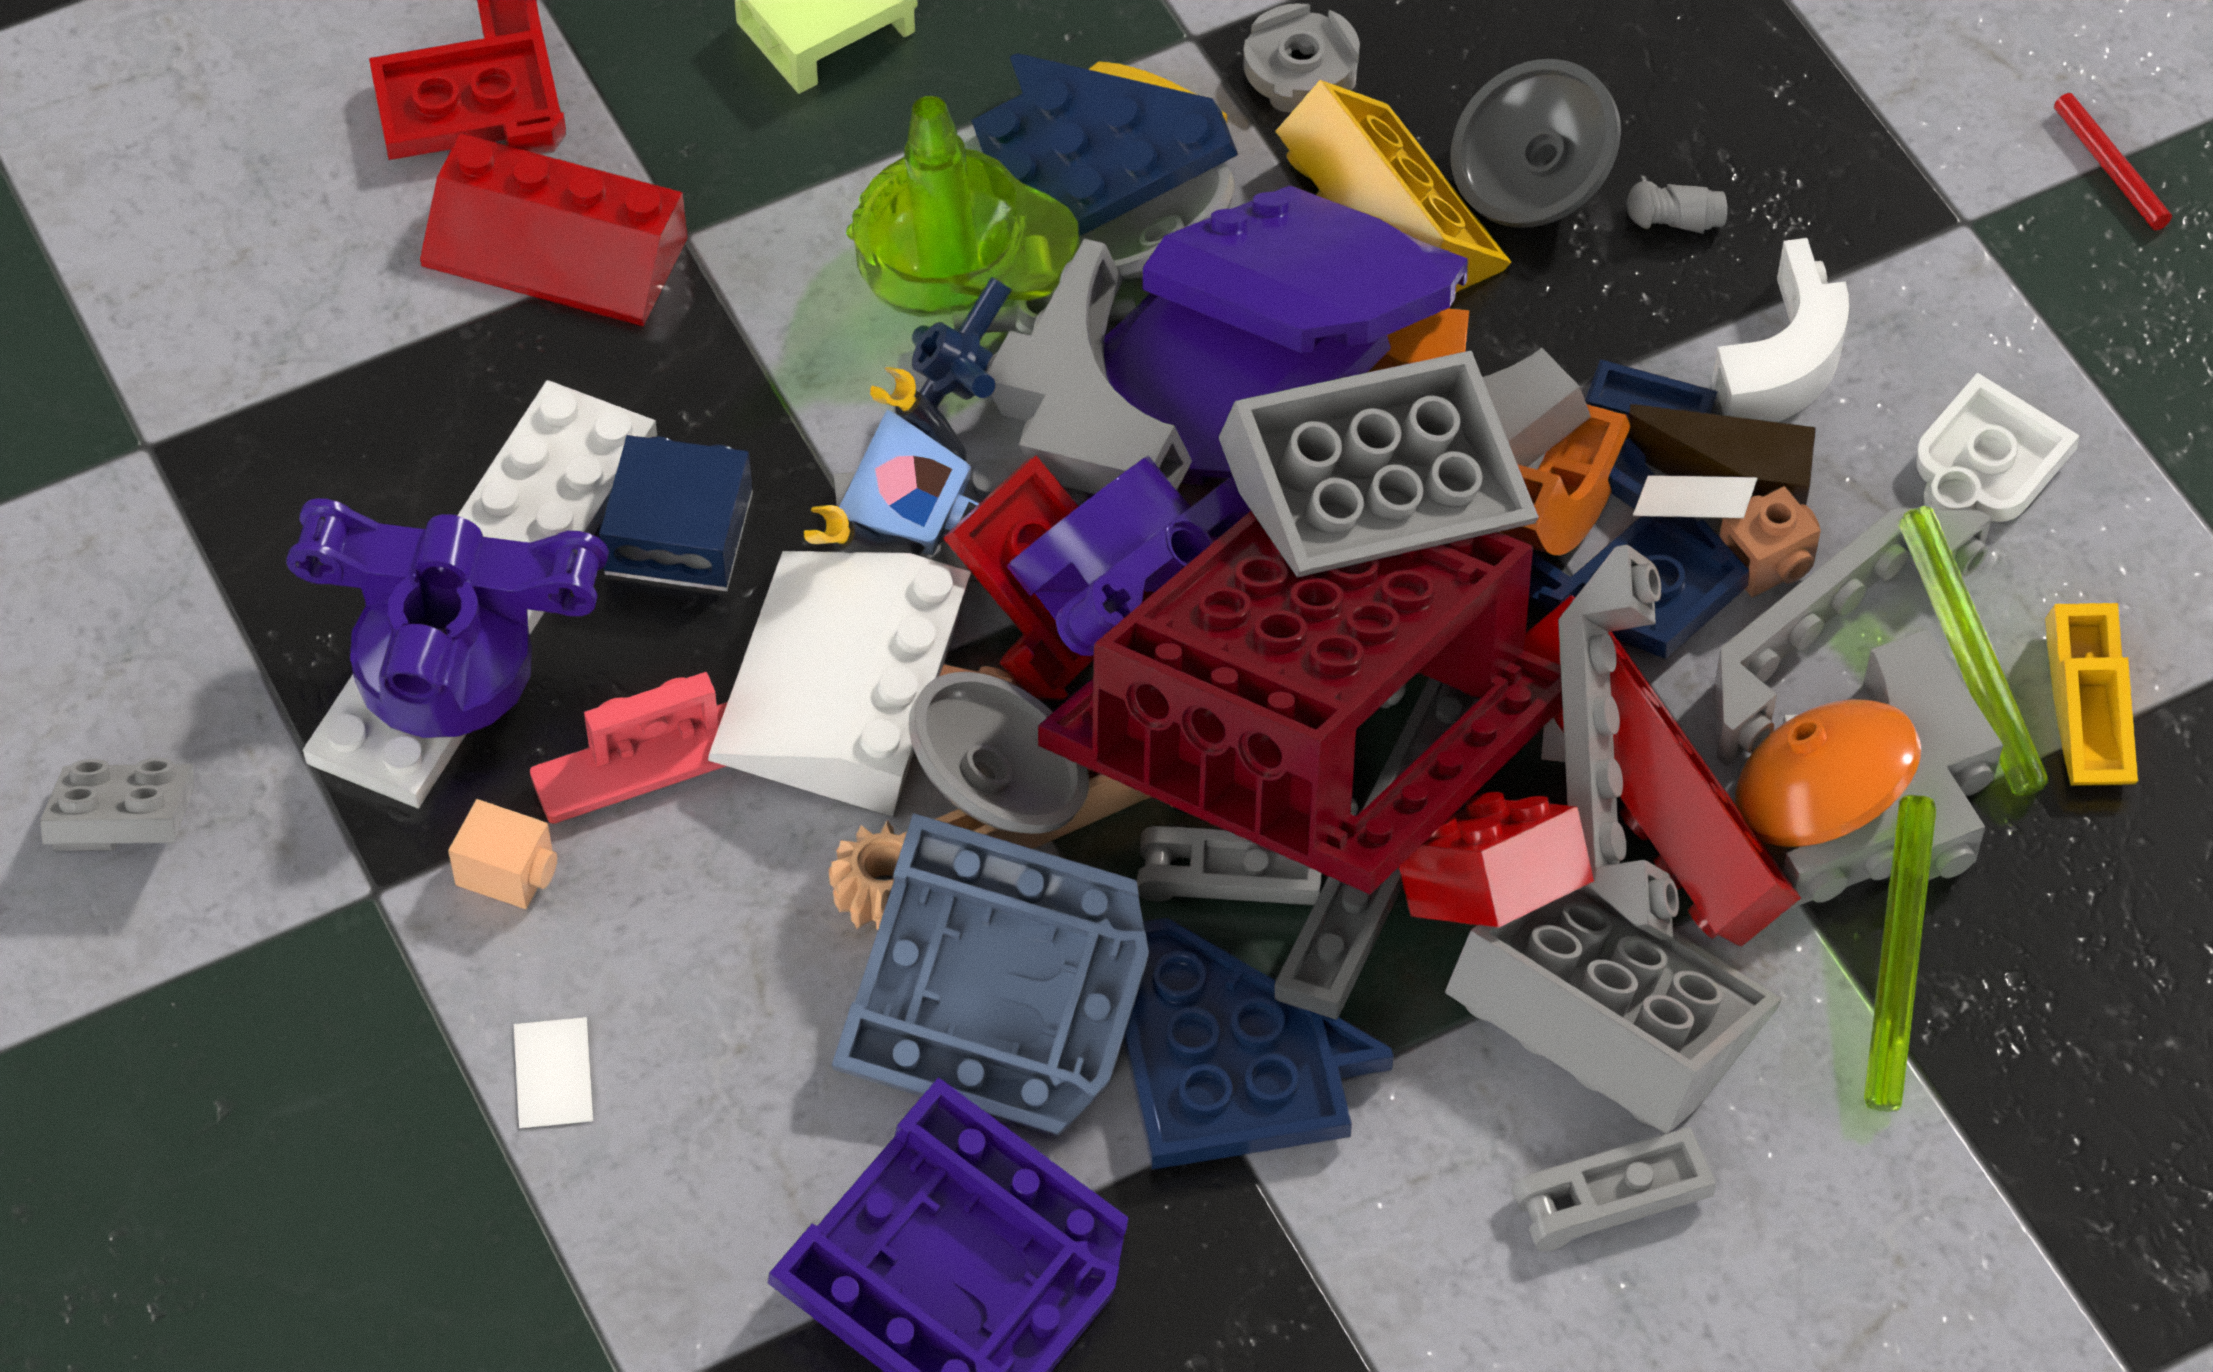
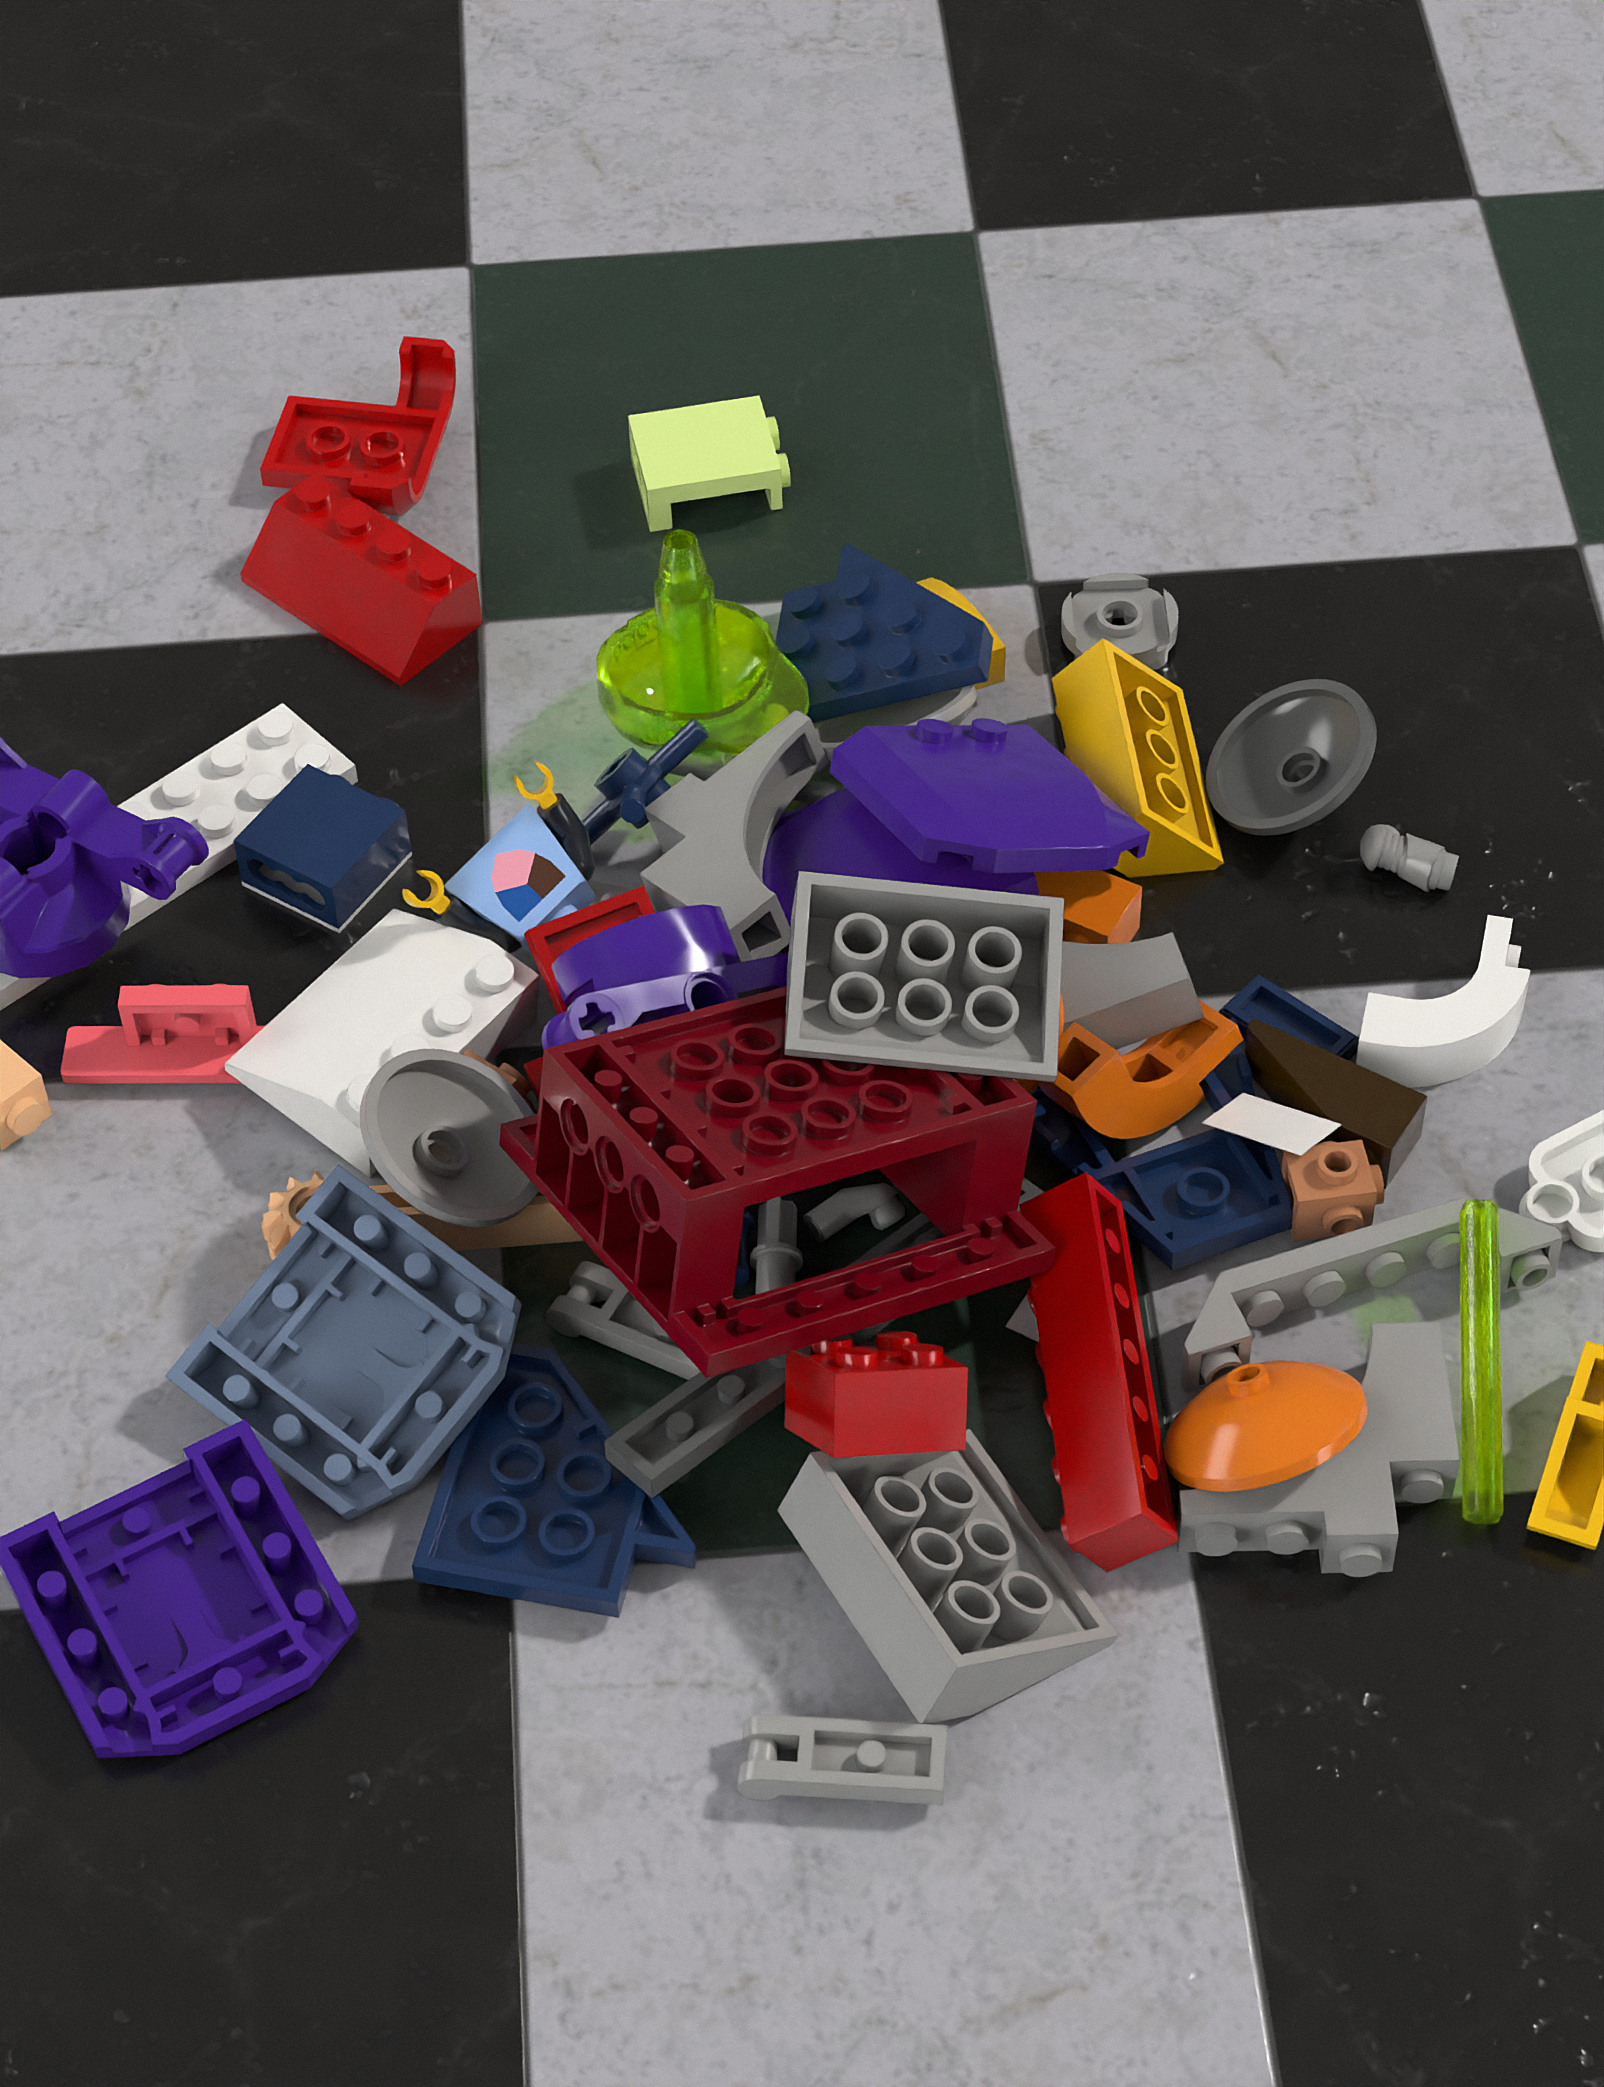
camera: 25 degrees right, 5 degrees down
(1614, 599) = (1108, 1182): light grey slope -> none
(1900, 954) = (1247, 1630): clear neon green axle -> none

